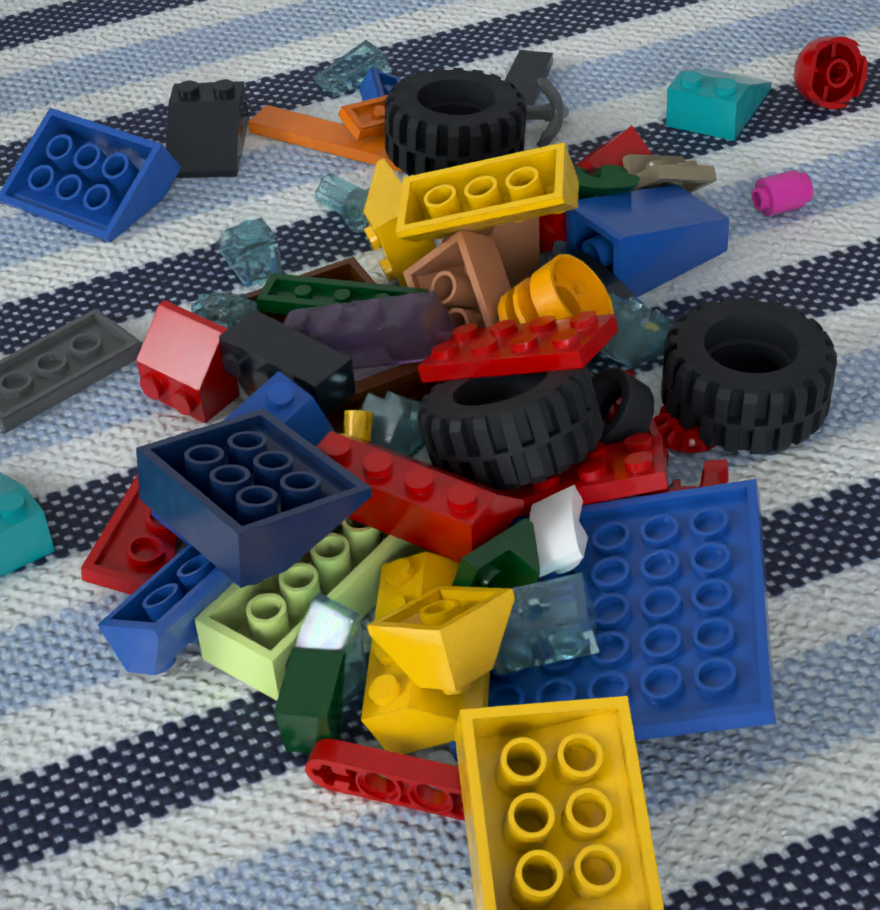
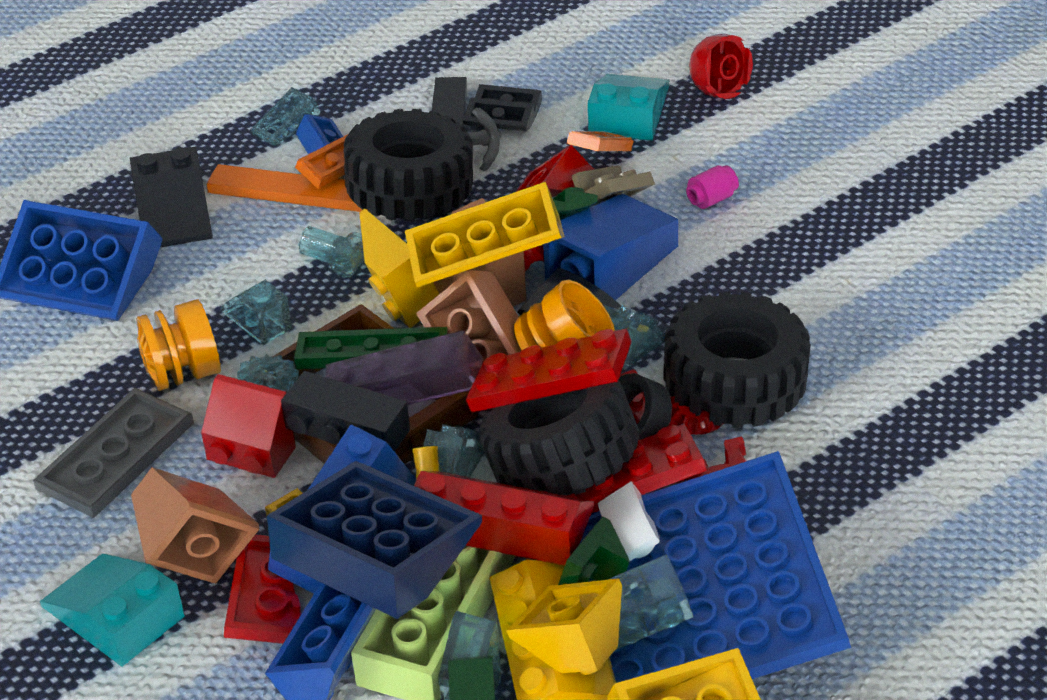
camera: 15 degrees left, 0 degrees up
(80, 453) = (189, 525): none -> nougat slope
(147, 269) = (178, 345): none -> light orange wheel
(585, 87) = (507, 106): none -> black slope
(668, 128) = (600, 141): none -> orange tile

